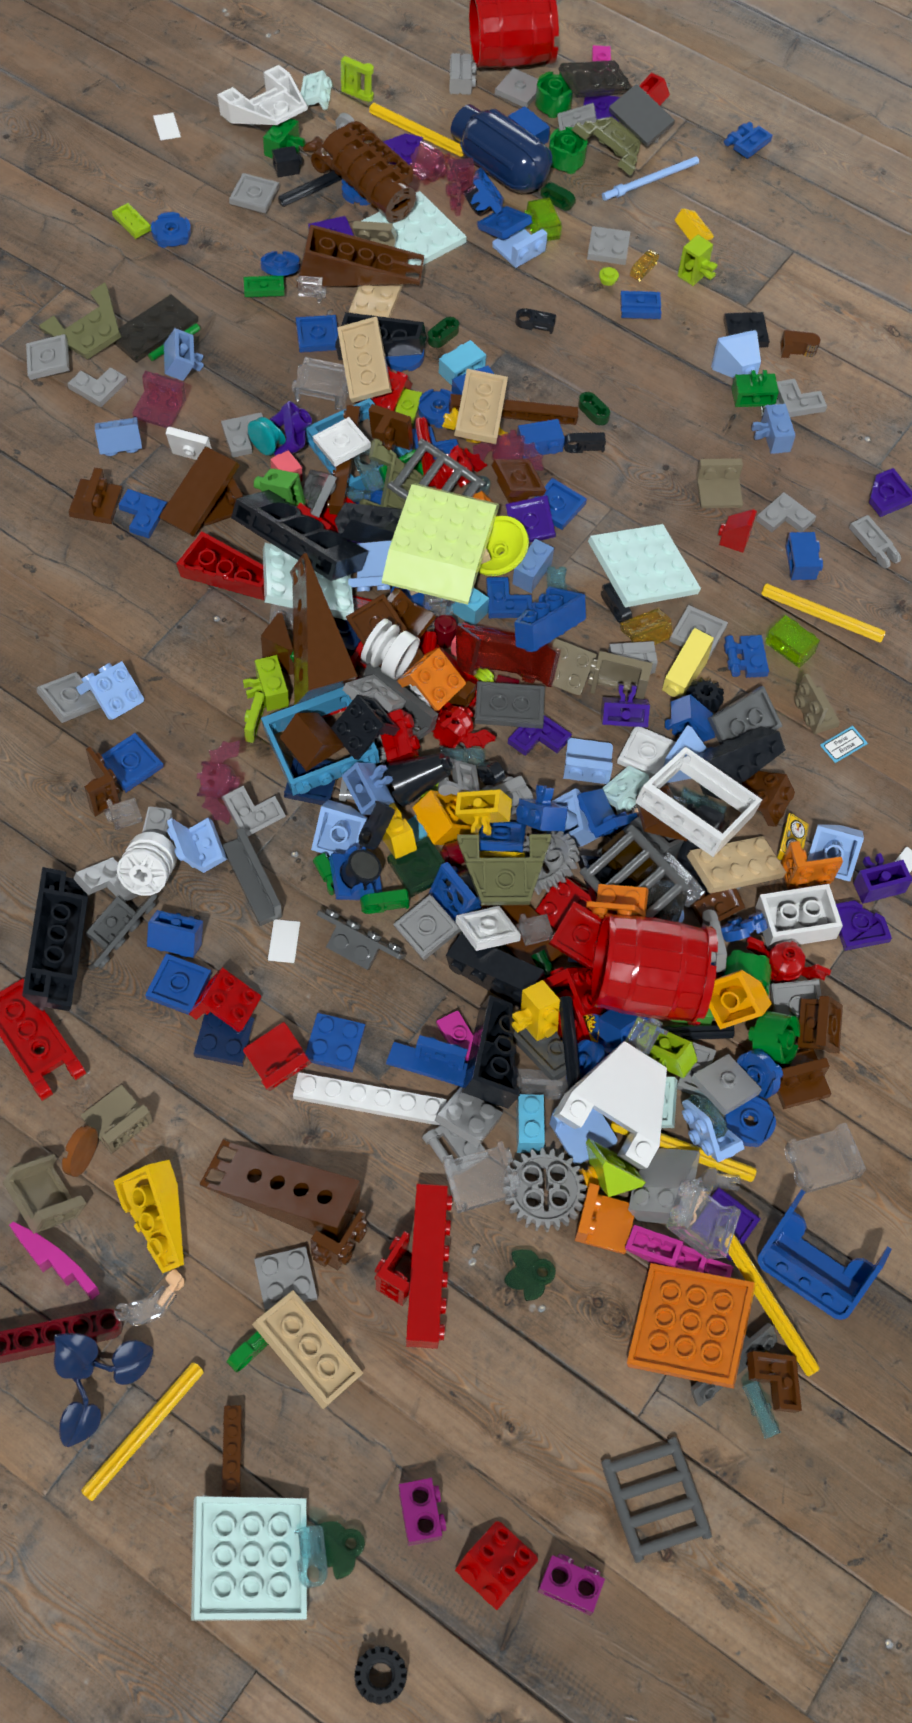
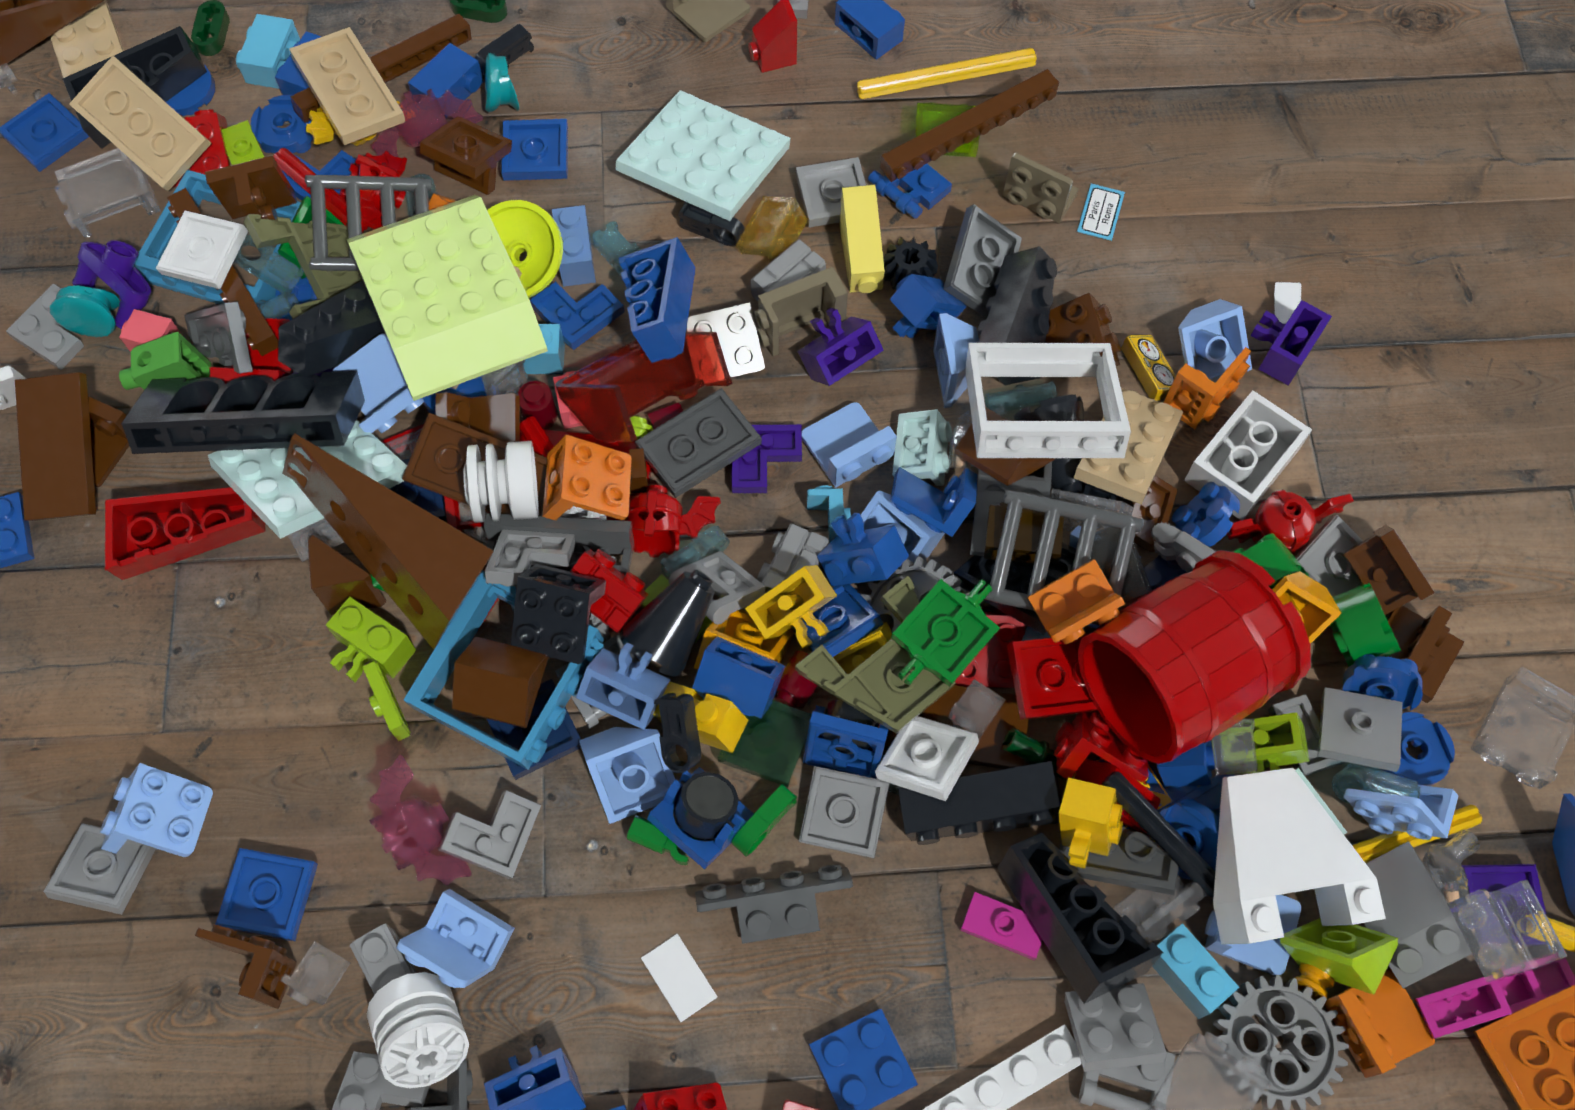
camera: 35 degrees left, 5 degrees up
(252, 878) = (569, 927): dark grey fence -> none
(428, 823) = (738, 676): none -> blue brick
(431, 1059) = (1003, 989): blue bracket -> none
(490, 772) = (752, 547): black beam -> none
(534, 516) = (522, 179): dark purple plate -> none
(543, 871) = (945, 632): none -> green plate
(551, 779) = (828, 499): none -> medium azure bracket
(564, 456) = (498, 84): none -> teal piece
(645, 751) = (904, 382): white plate -> none
(802, 645) = (969, 125): none -> reddish brown piece
(861, 926) = (1321, 409): dark purple plate -> none

